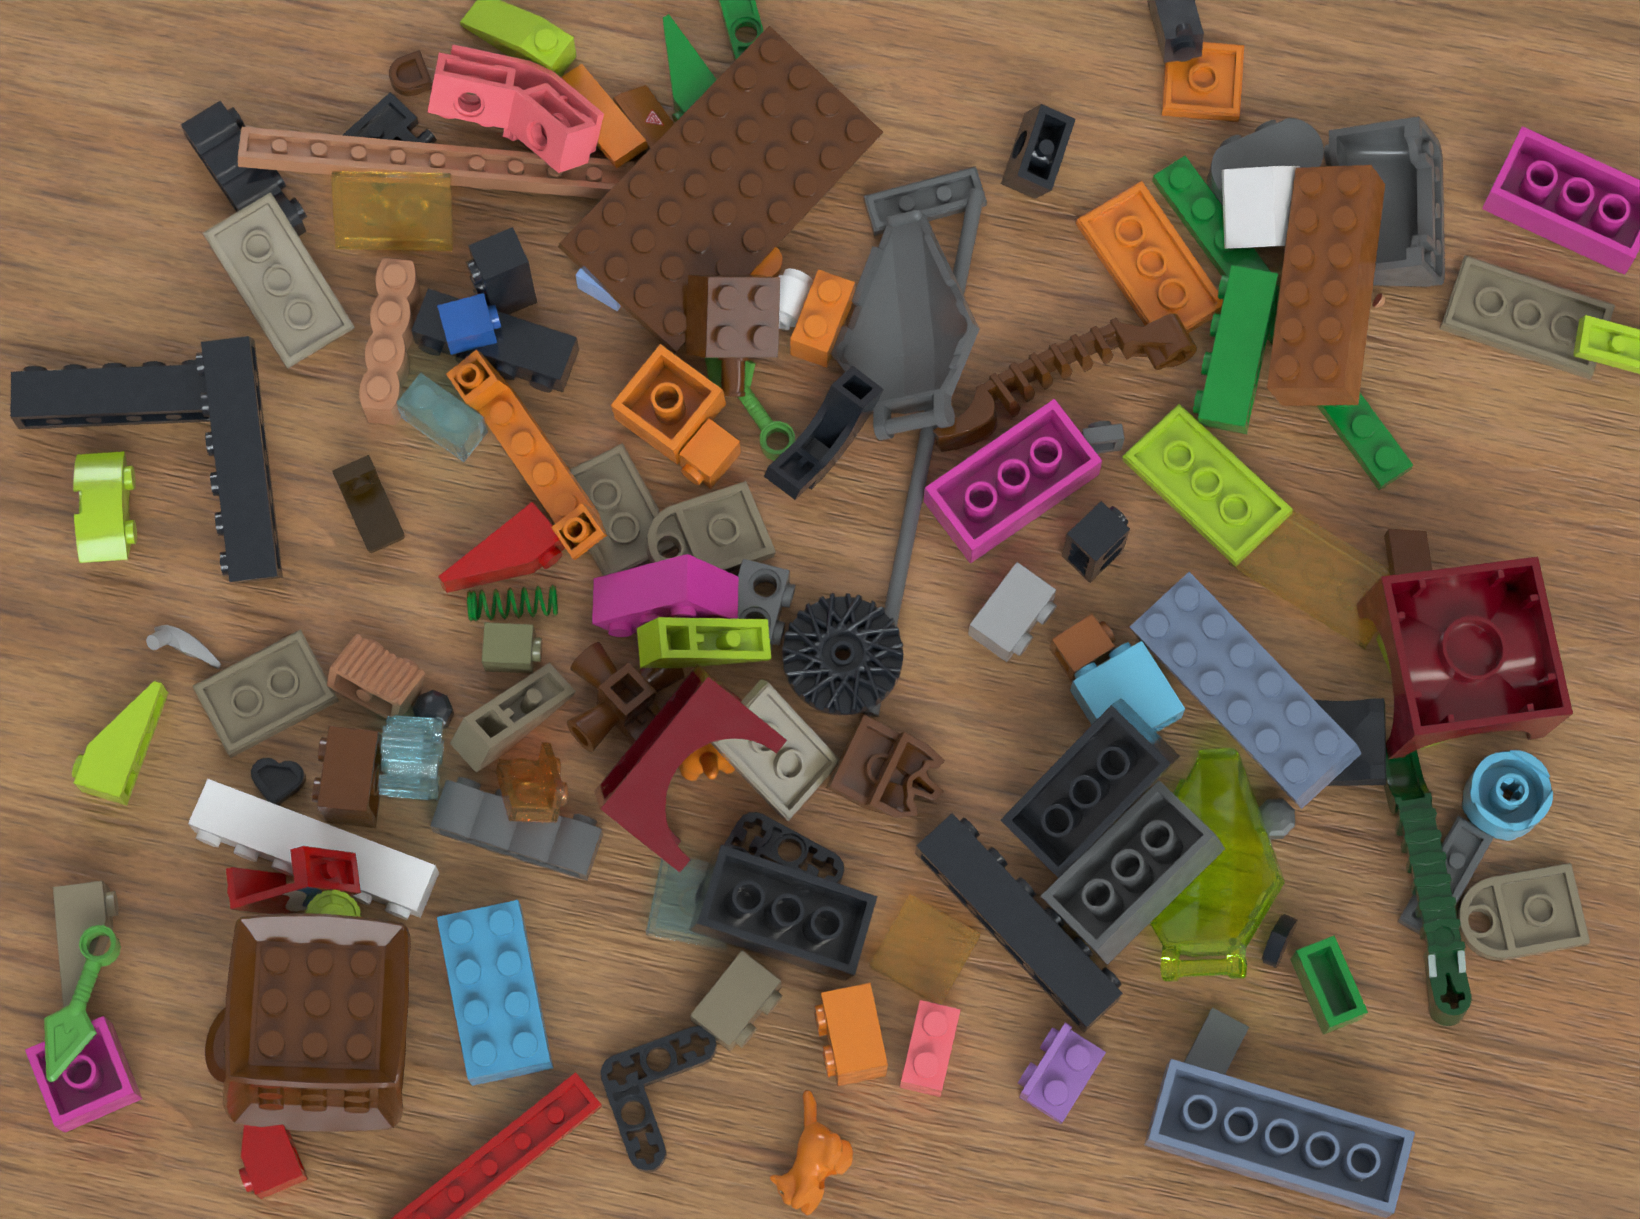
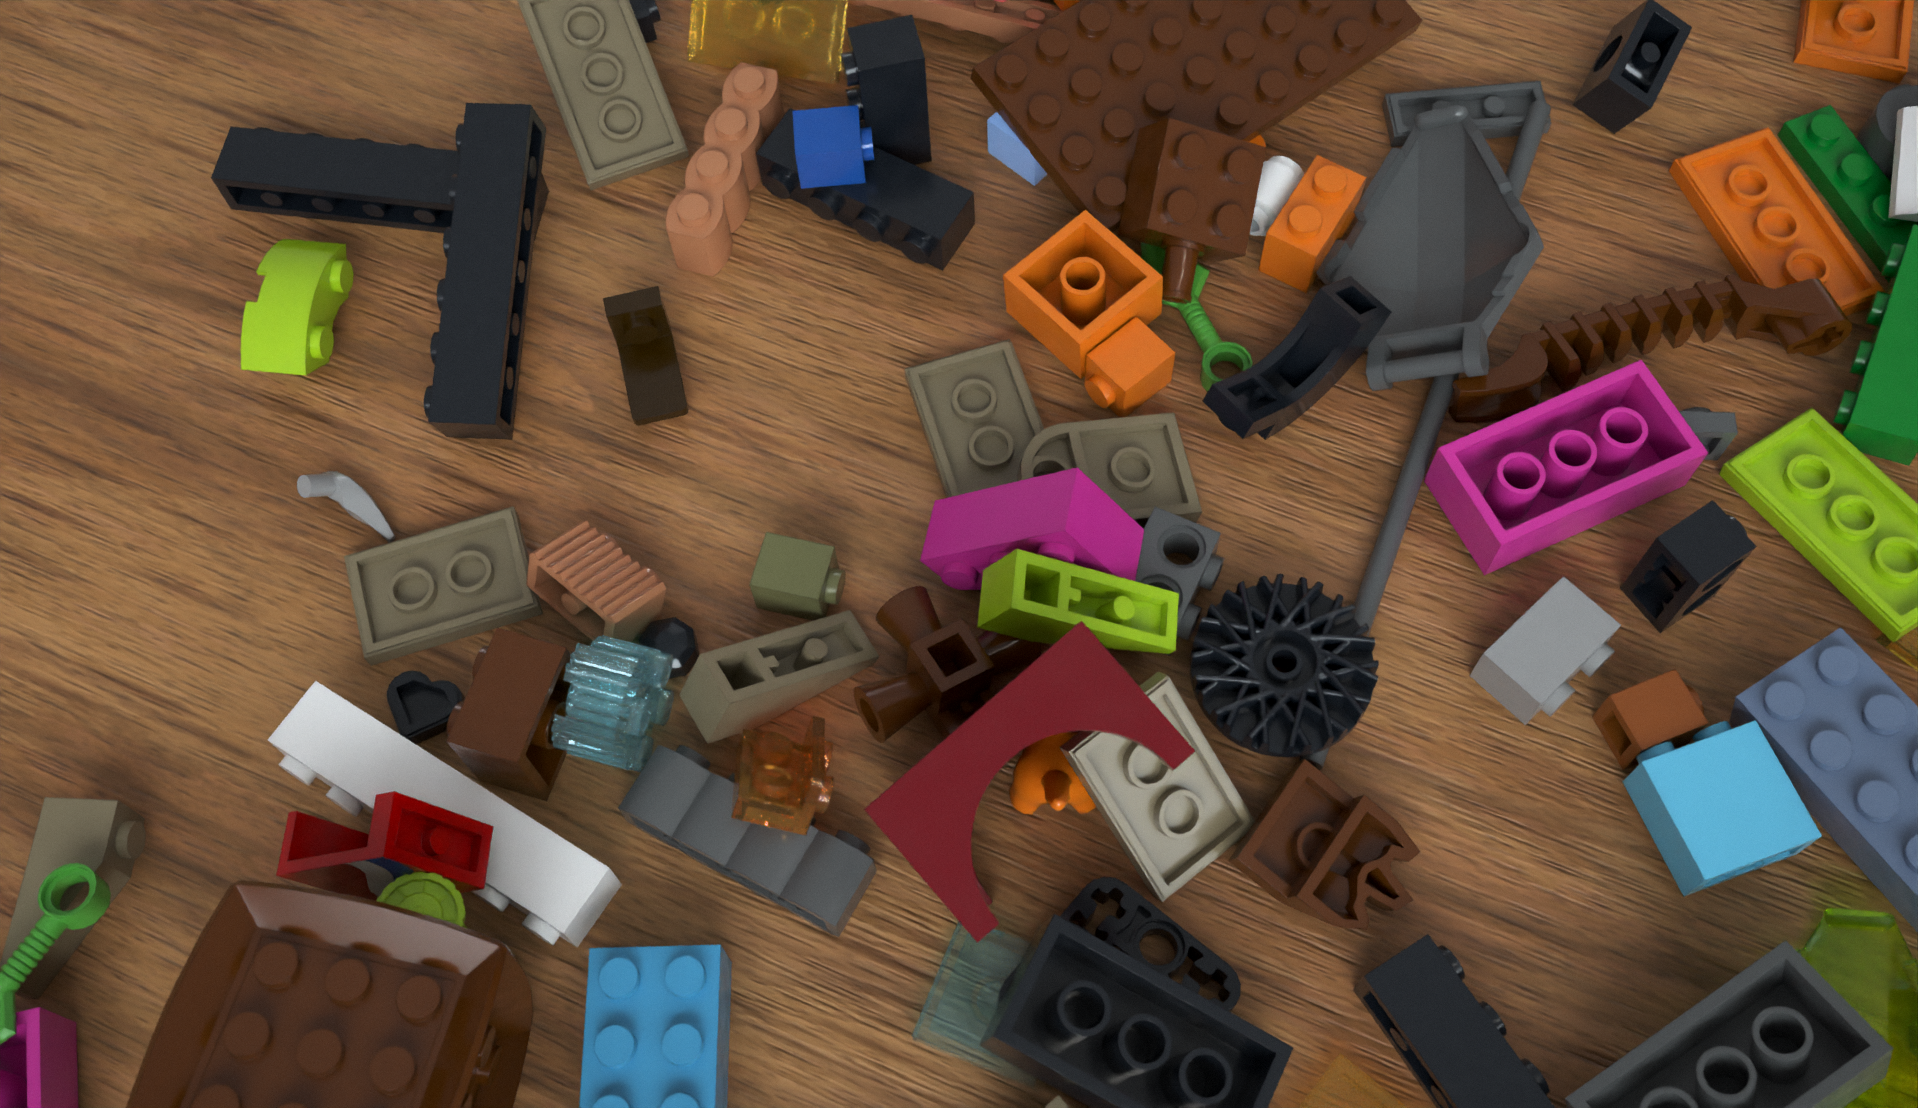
camera: 15 degrees right, 10 degrees down
(118, 751) = (211, 627): lime slope -> none
(442, 417) = (773, 267): clear light blue brick -> none
(475, 613) = (758, 513): green piece -> none
(509, 552) = (822, 451): red slope -> none
(574, 515) = (912, 388): orange slope -> none
(1090, 787) = (1666, 935): black brick -> none

